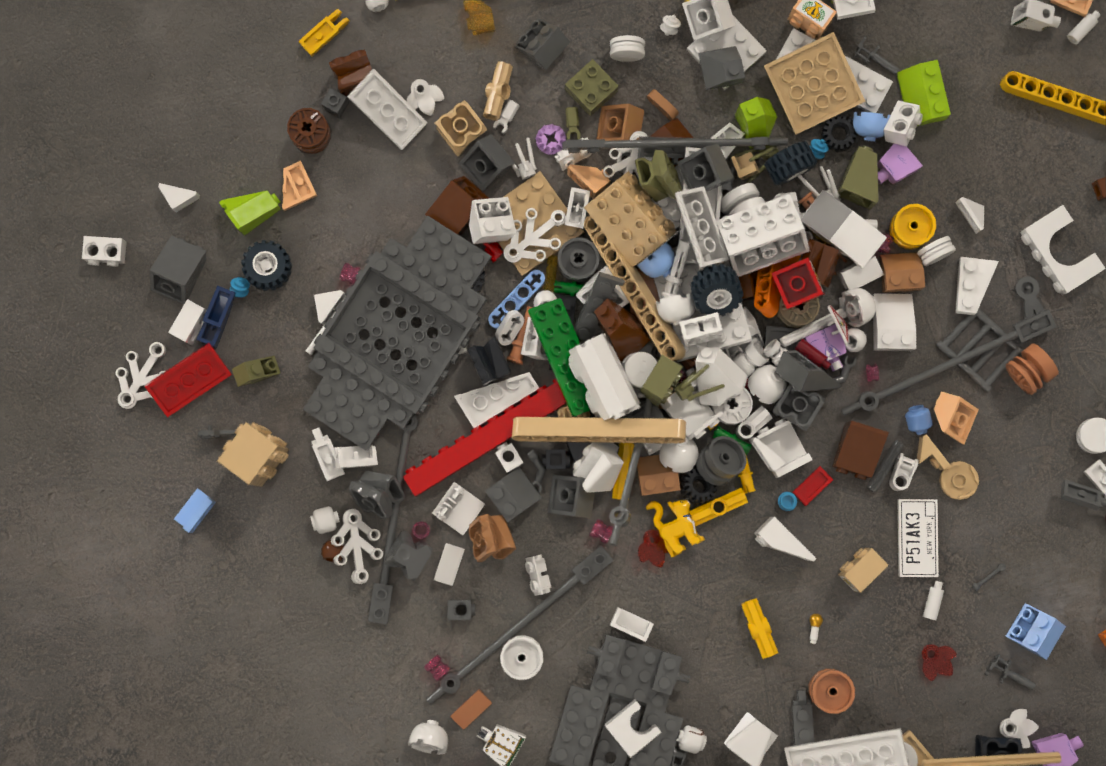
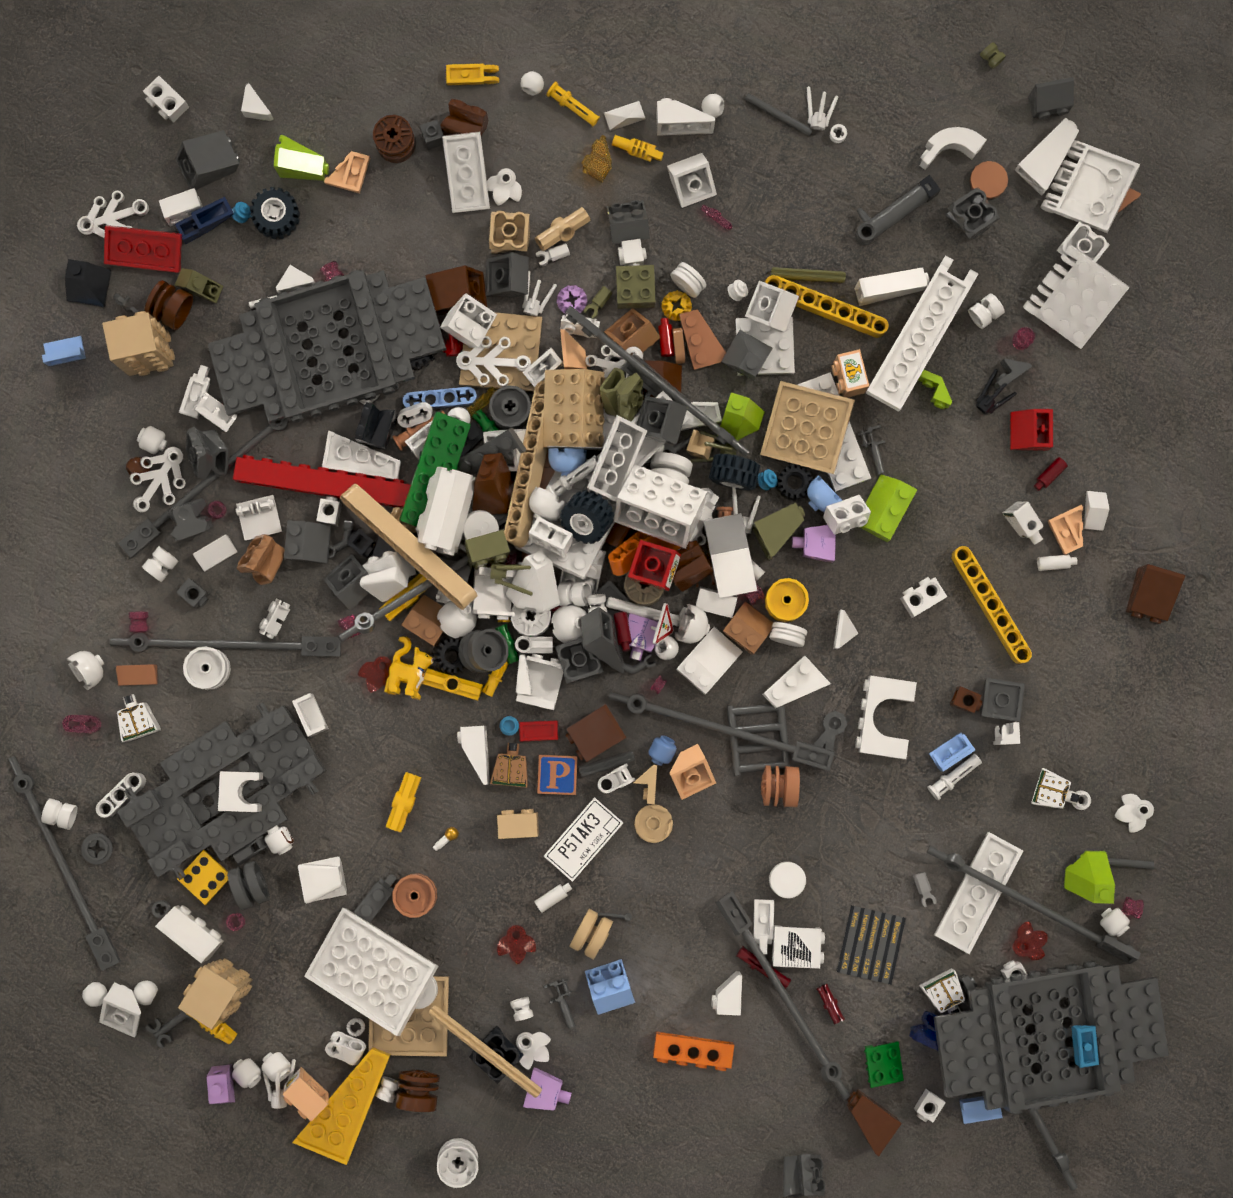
camera: 40 degrees right, 0 degrees up
(167, 443) = (86, 283): none -> black slope
(252, 404) = (169, 305): none -> reddish brown wheel
(414, 609) = (160, 563): none -> white wheel
(566, 65) = (631, 253): none -> white brick
(628, 82) = (667, 306): none -> yellow gear
(648, 106) = (666, 339): none -> red cylinder
(676, 87) = (700, 340): none -> nougat wing
(818, 532) = (510, 768): none -> medium nougat torso
(855, 506) = (557, 774): none -> tile
(985, 705) = (521, 1009): none -> white wheel
(989, 603) = (592, 934): none -> tan wheel
(1014, 139) = (925, 600): none -> white brick

